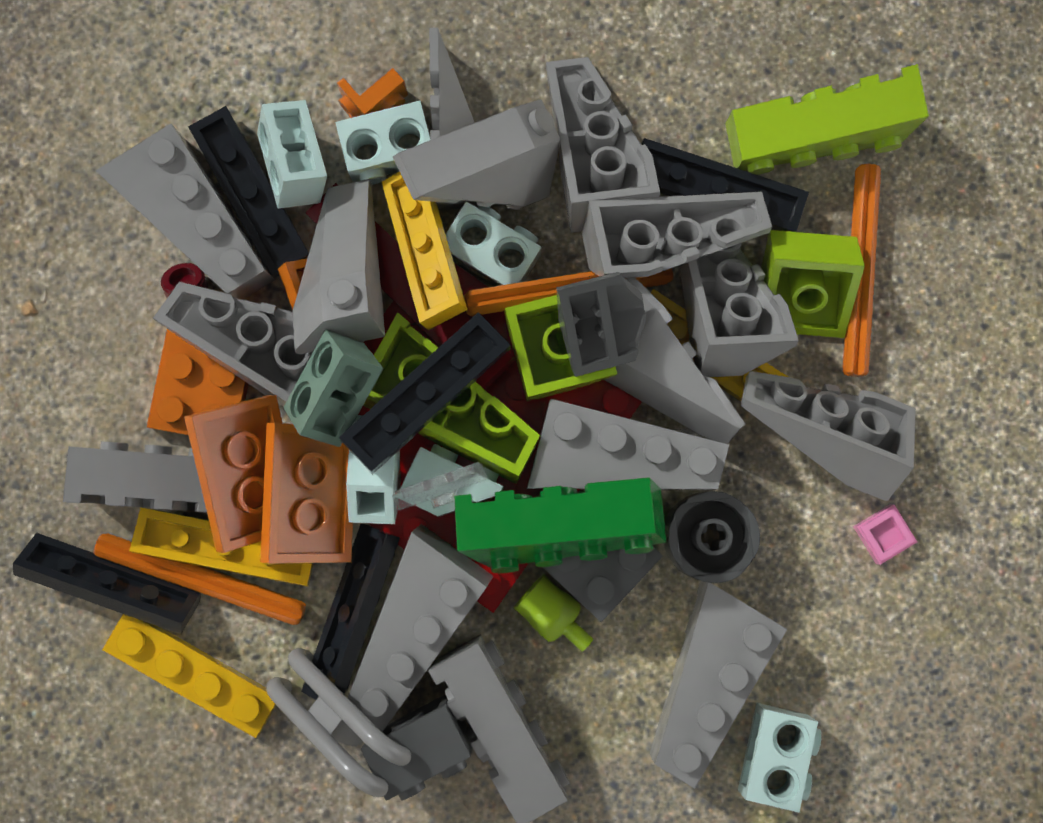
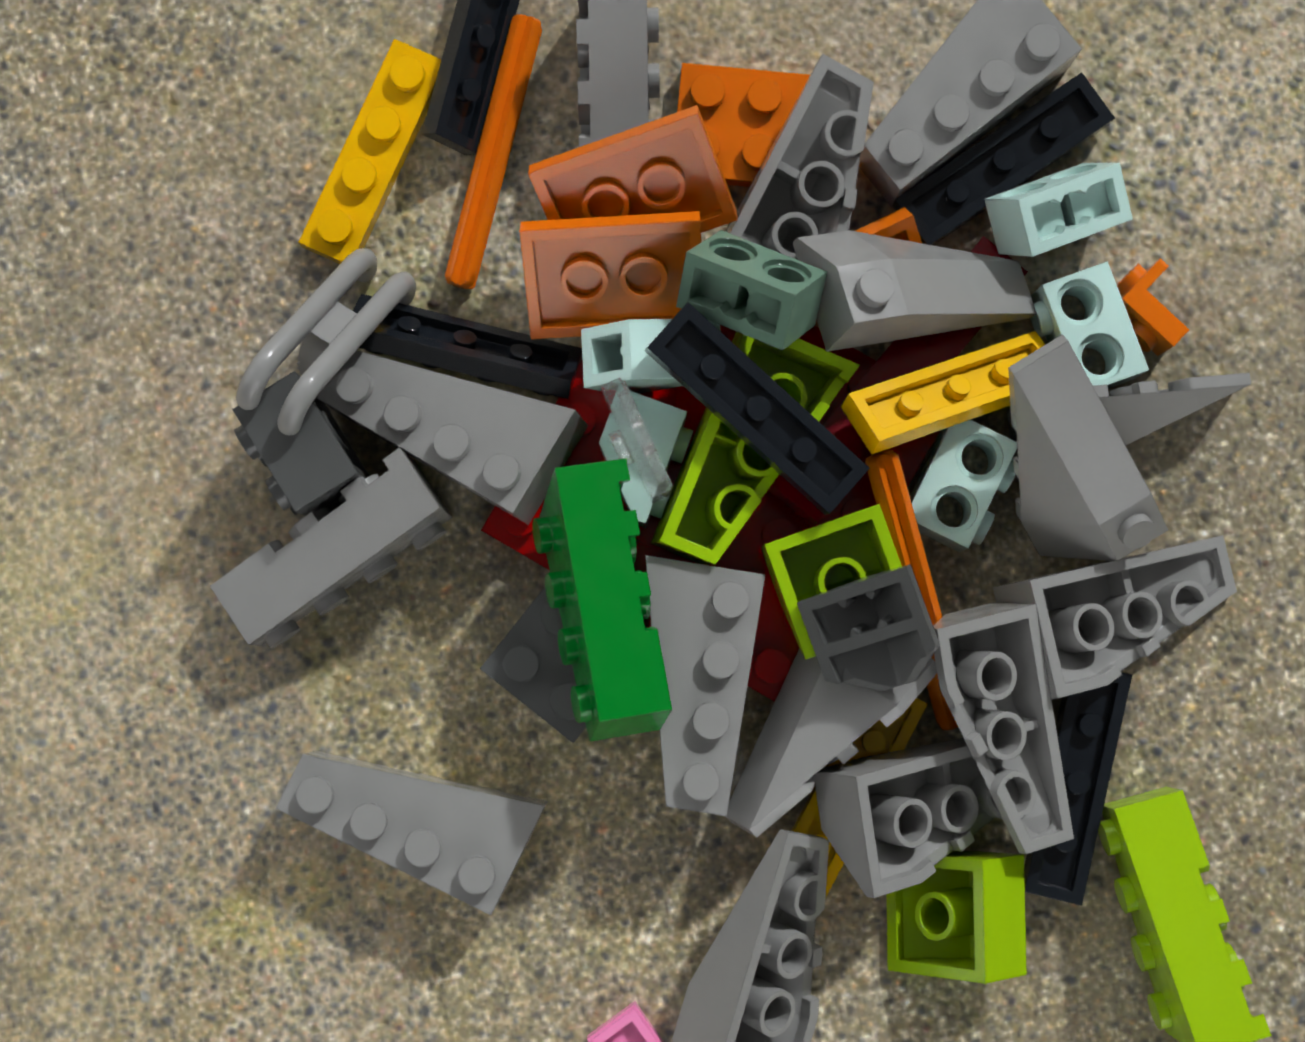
camera: 85 degrees right, 0 degrees up
(185, 273) = (885, 88): dark red tile -> none
(192, 542) = (539, 132): yellow plate -> none
(552, 613) = (487, 608): lime piece -> none
(729, 554) = (584, 833): dark grey brick -> none
(766, 756) = (324, 904): light aqua brick -> none
(865, 228) = (1035, 988): orange axle -> none

